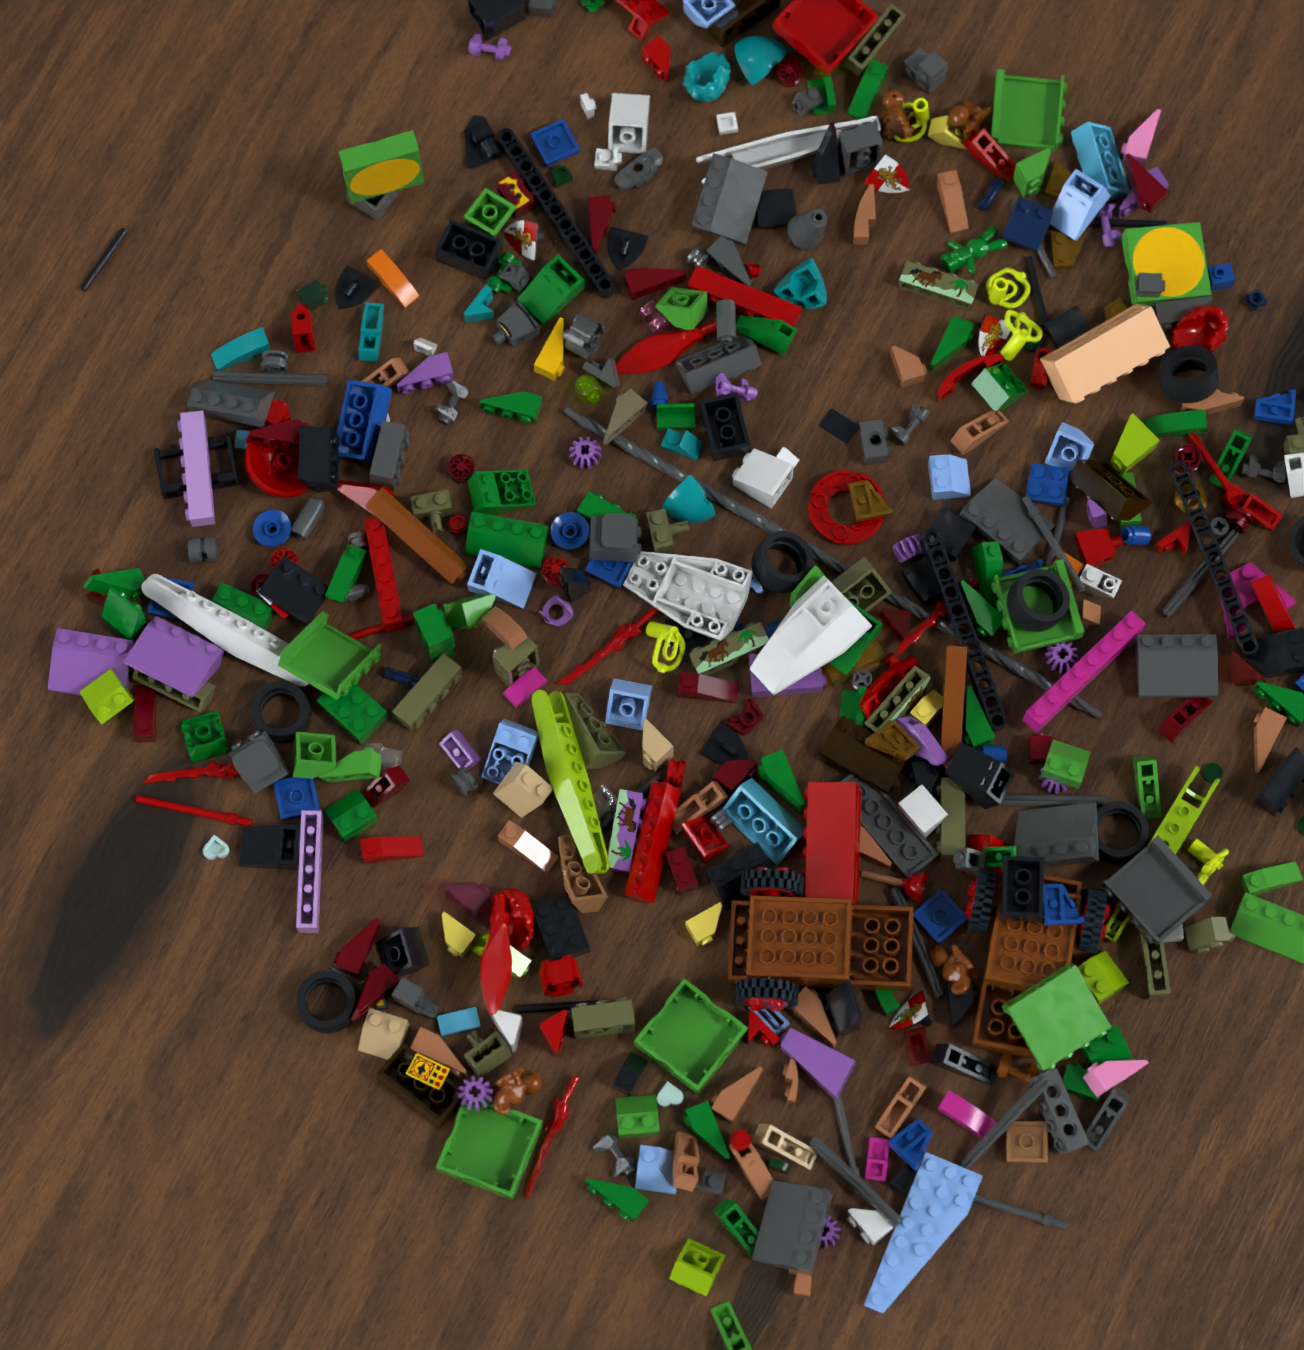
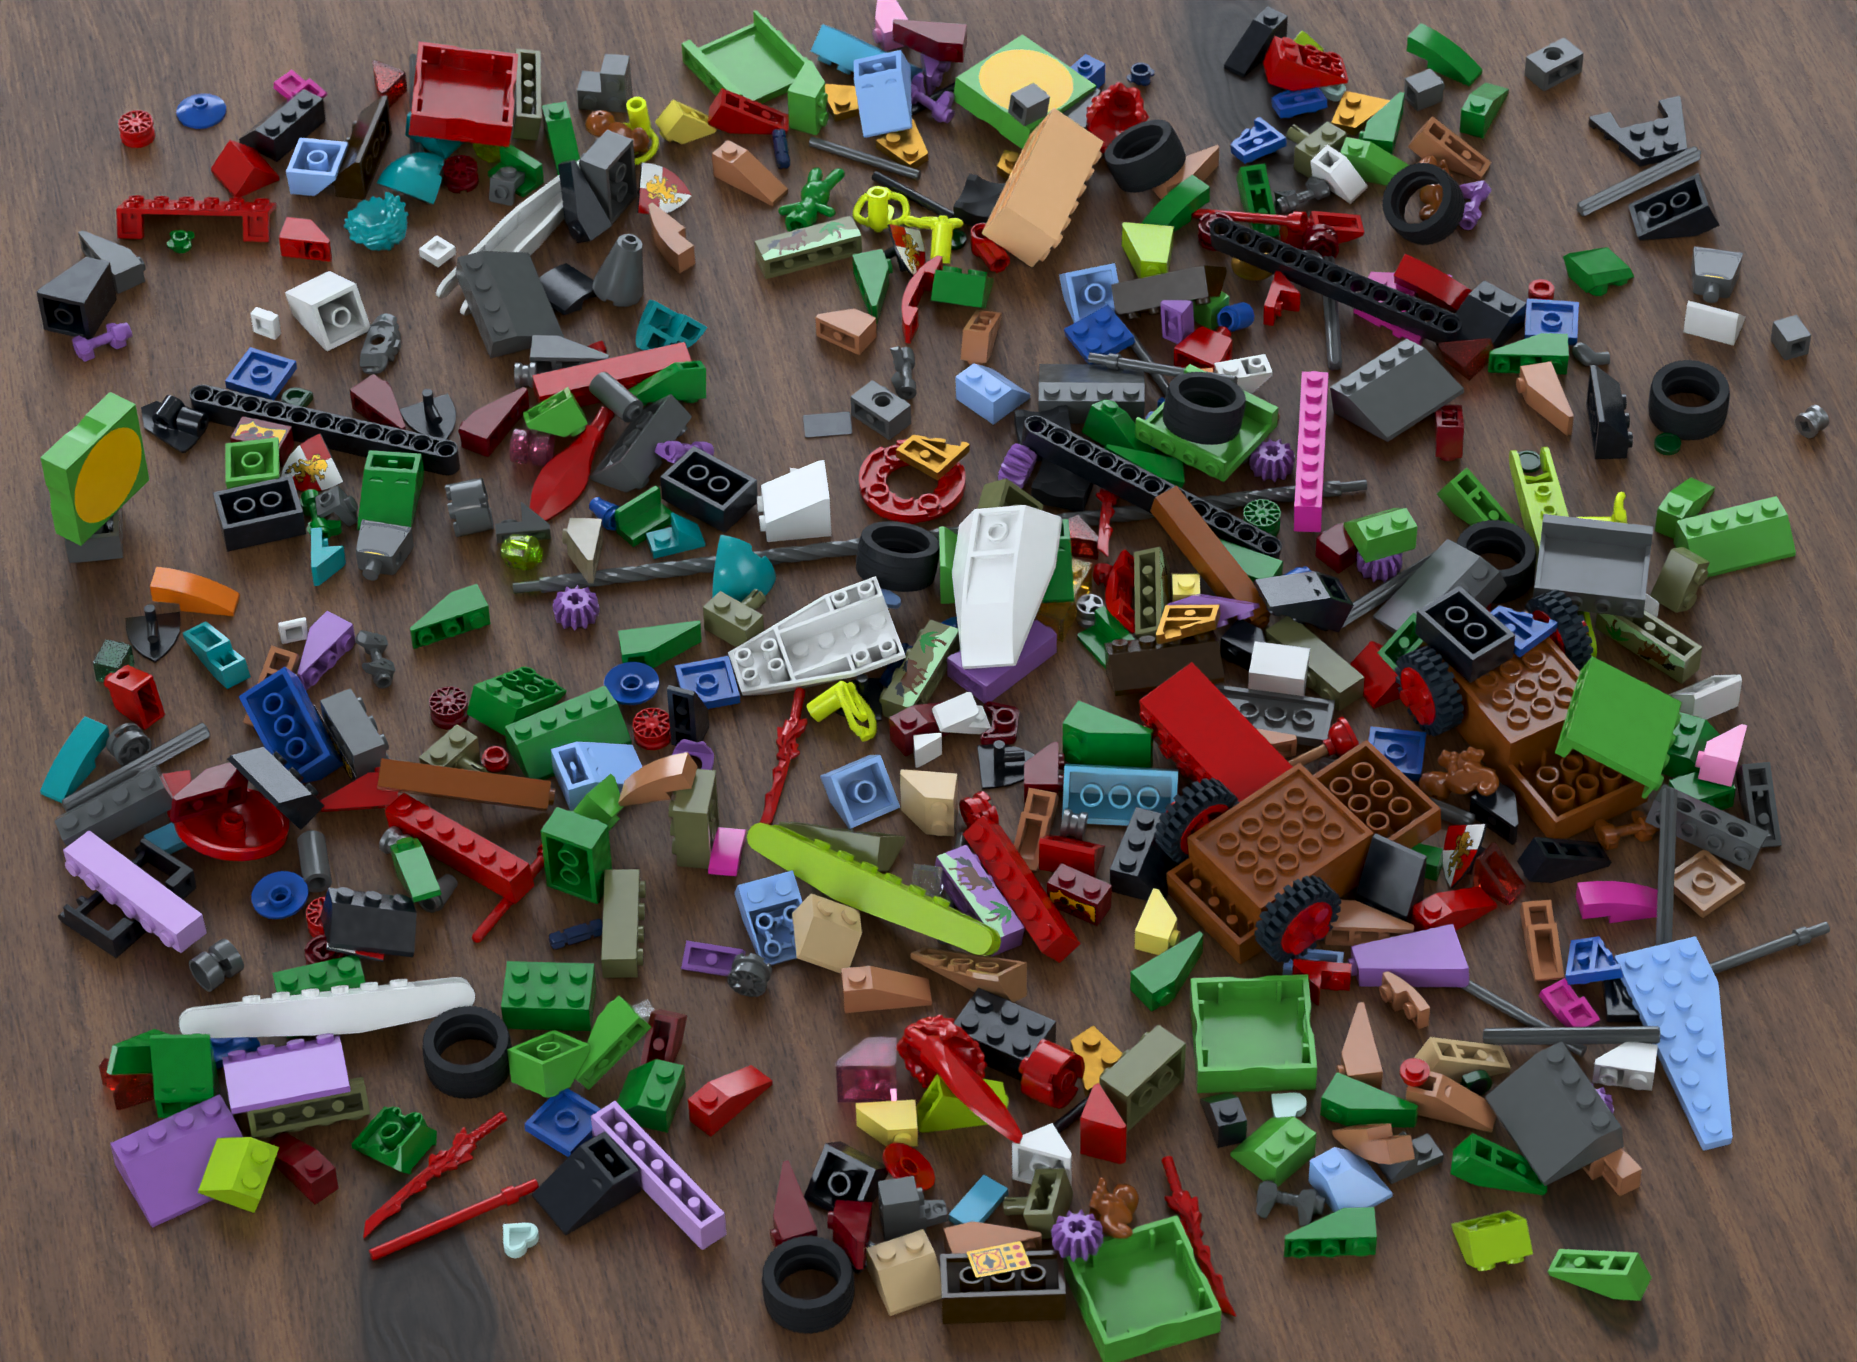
camera: 40 degrees left, 25 degrees down
(258, 761) = (490, 1105): dark grey brick -> none
(328, 658) = (477, 957): bright green panel -> none
(447, 971) = (905, 1162): none -> red dish
(552, 355) = (450, 547): yellow slope -> none
(599, 982) = (1097, 1055): none -> wing
(607, 159) = (335, 355): white bracket -> none
(614, 538) = (690, 649): dark grey brick -> none
(680, 960) = (1162, 977): none -> slope
(687, 703) = (926, 748): none -> white slope
(722, 700) = (961, 715): none -> white slope
(872, 1046) = (1451, 907): none -> red slope
(966, 858) = (1373, 675): dark grey brick -> none
(969, 116) = (693, 92): dark orange animal -> none
(1017, 694) = (1263, 515): none -> green wheel
(1027, 224) = (847, 140): dark blue slope -> none
(1150, 1020) = (1710, 696): none -> white slope

